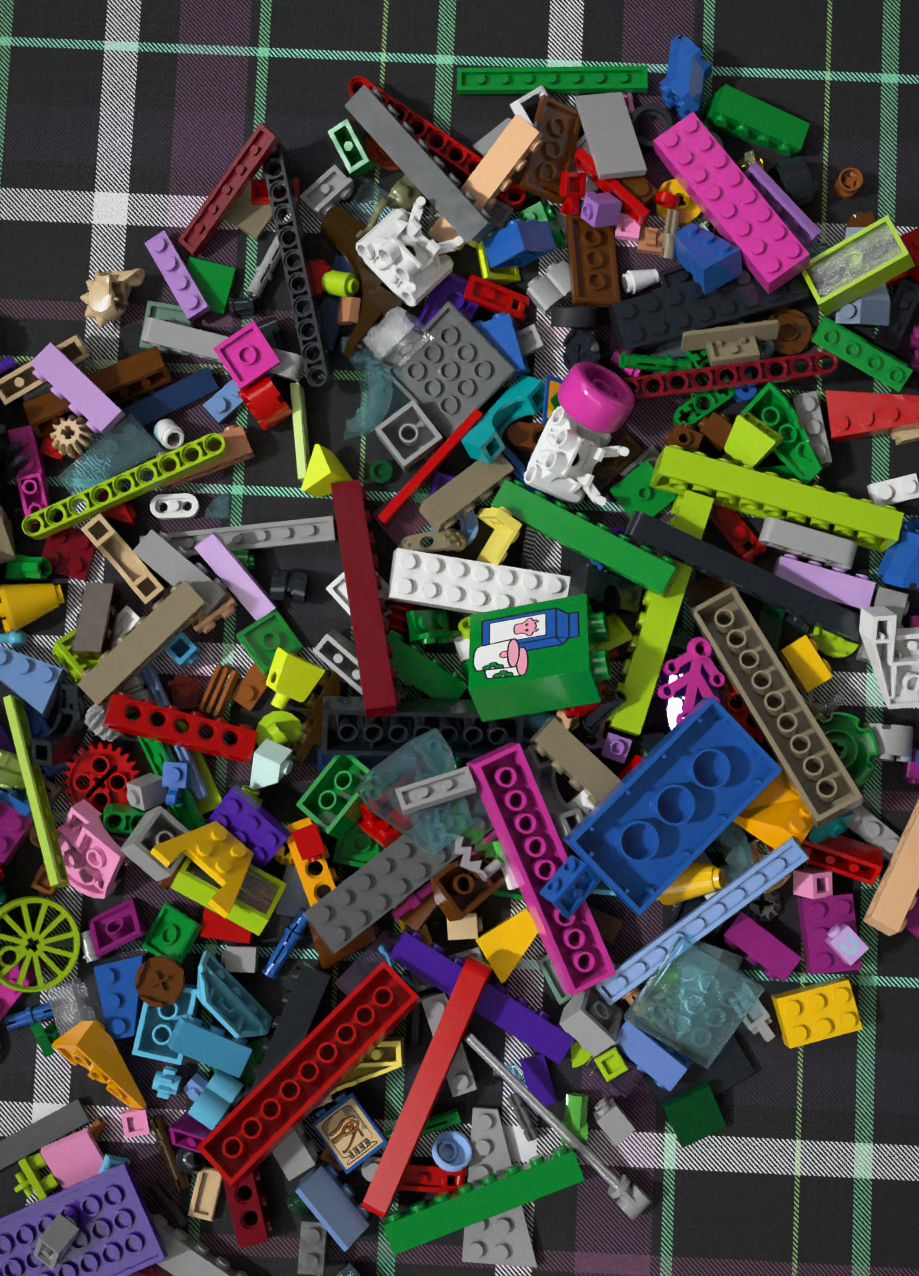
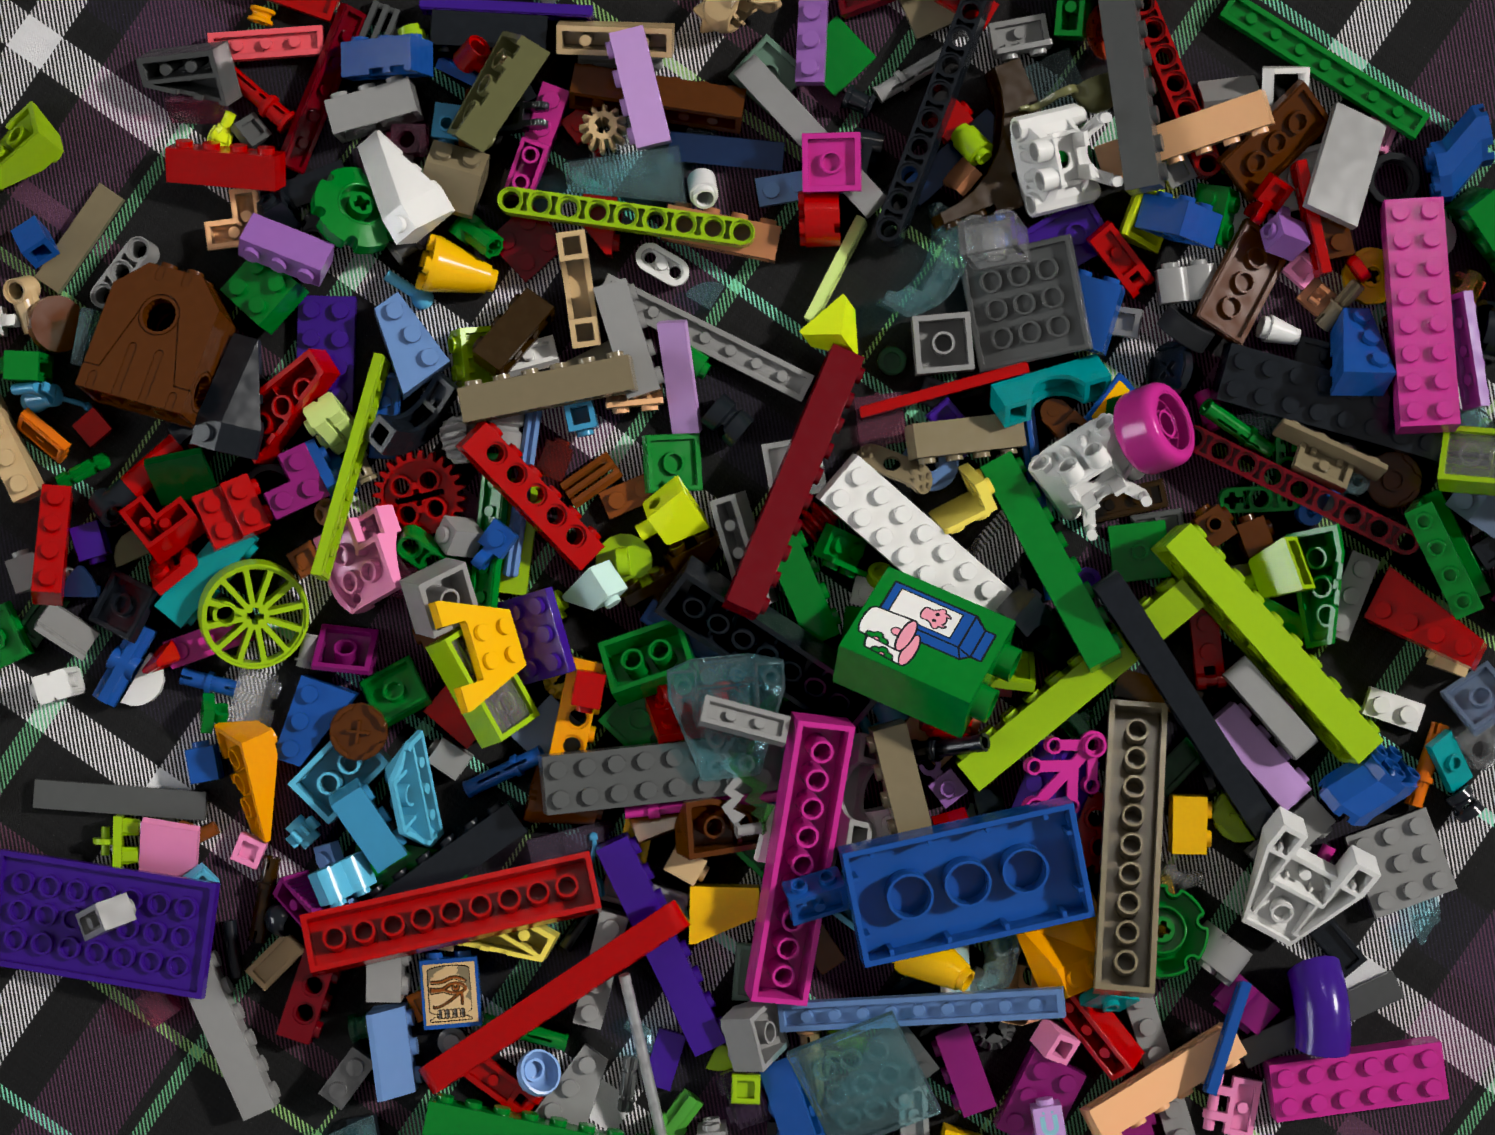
camera: 30 degrees right, 5 degrees up
(62, 1078) = (204, 762): none -> blue brick

